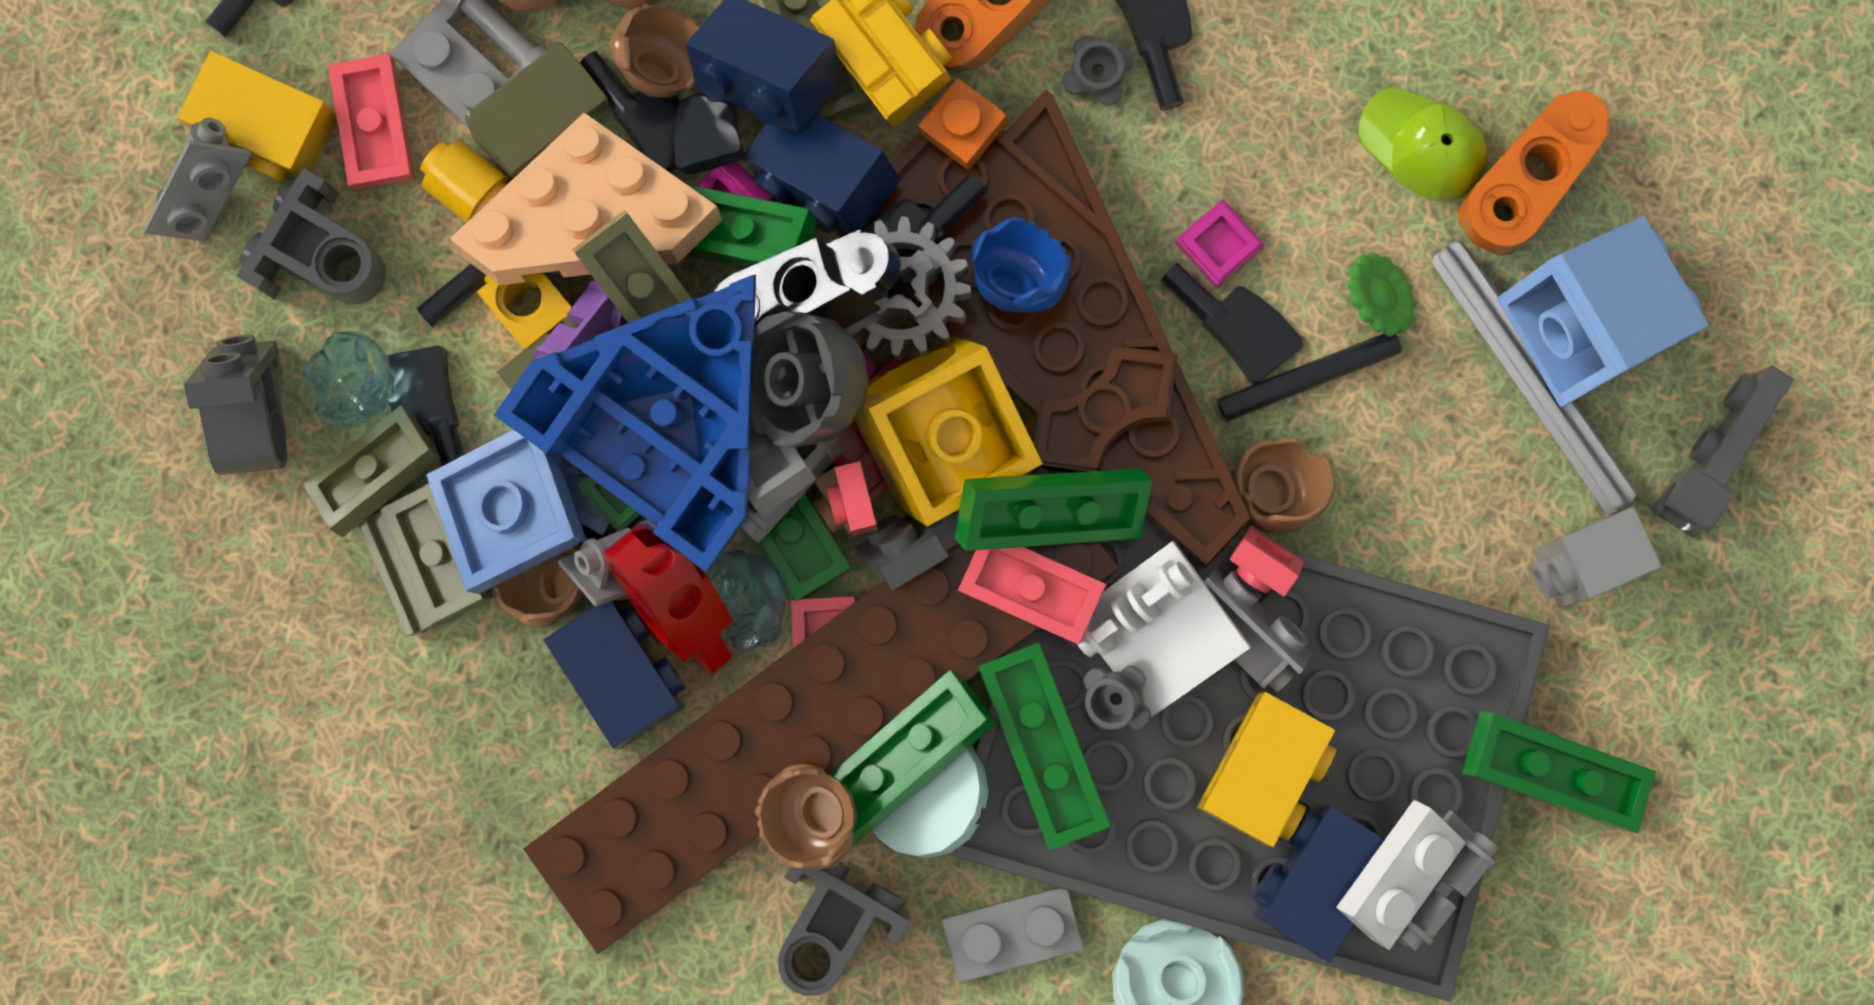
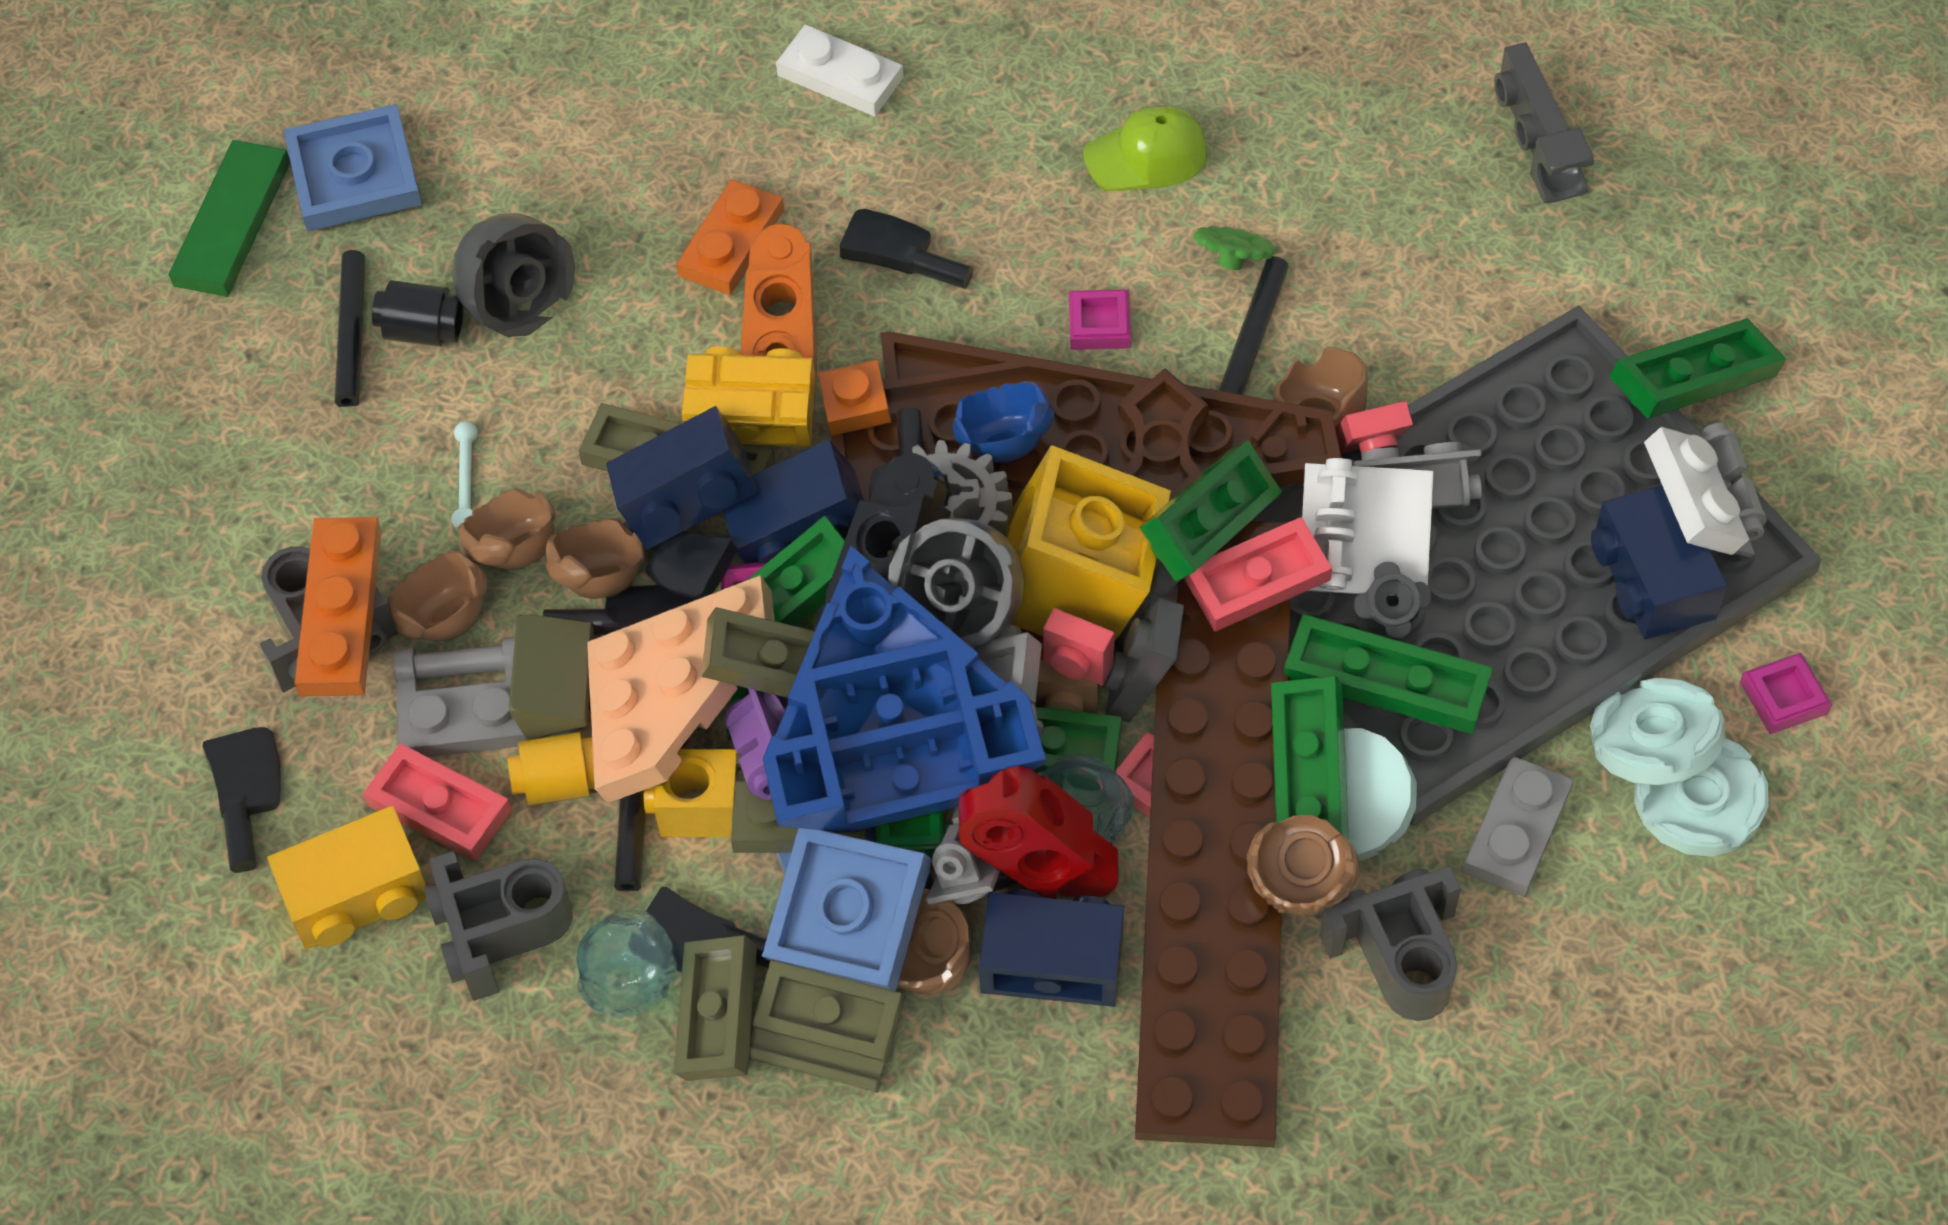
camera: 50 degrees left, 25 degrees down
(198, 184) = (363, 974): light grey hinge -> none
(240, 405) = (569, 1062): dark grey pin -> none
(1095, 52) = (895, 287): dark grey plate -> none
(1242, 323) = (1176, 345): black piece -> none
(1268, 770) = (1537, 538): yellow brick -> none
(1563, 137) = (1234, 98): orange piece -> none
(1565, 424) = (1382, 200): light grey axle -> none
(1594, 559) = (1553, 234): light grey brick -> none
(1602, 309) = (1372, 120): light blue slope -> none

